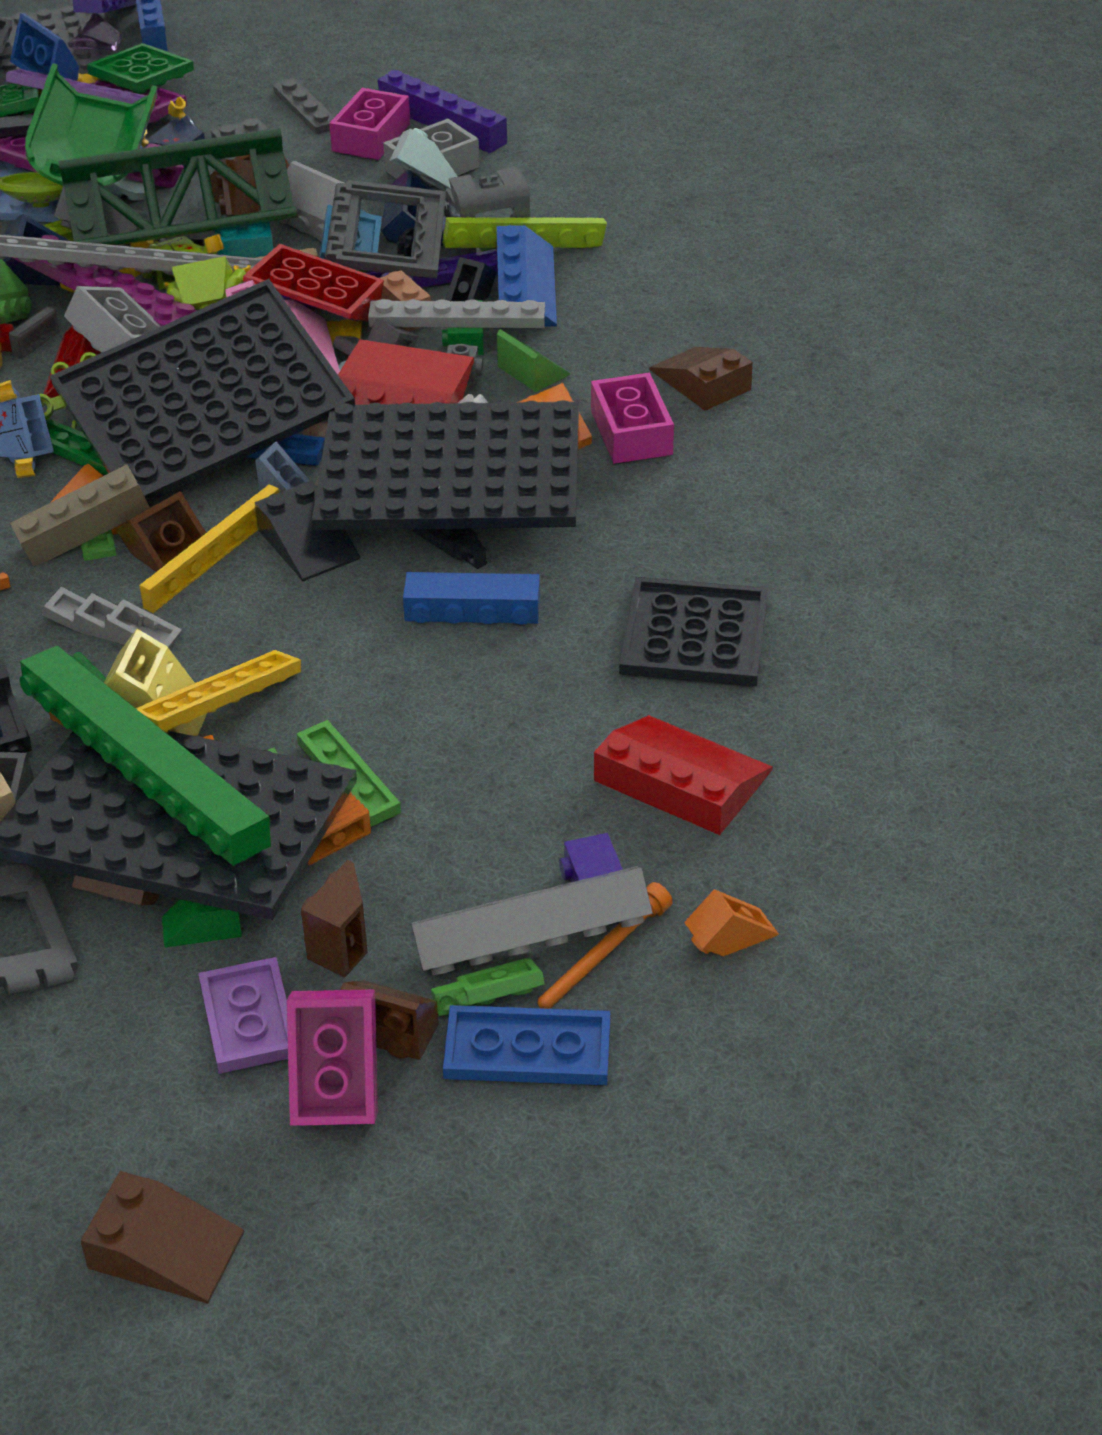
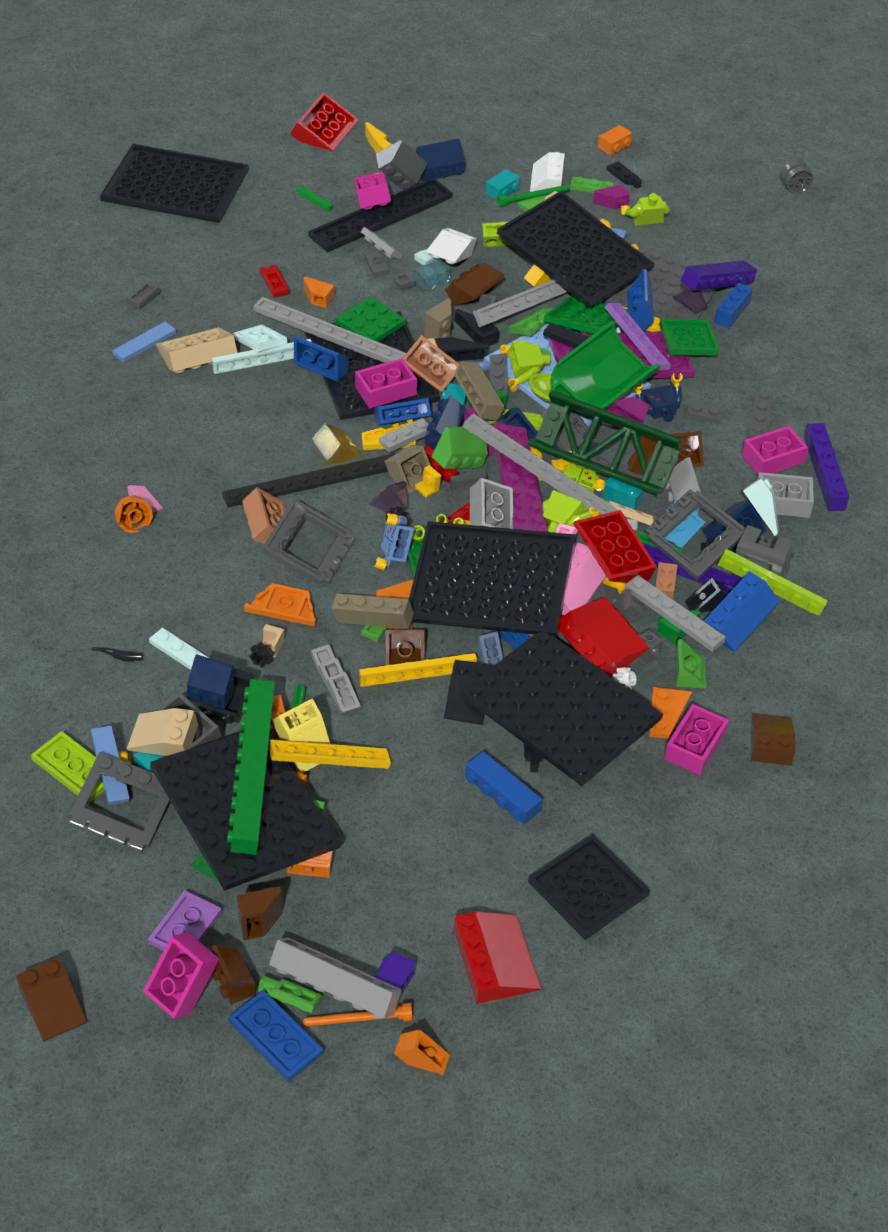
camera: 40 degrees right, 5 degrees up
(327, 746) = (350, 837): bright green plate -> none

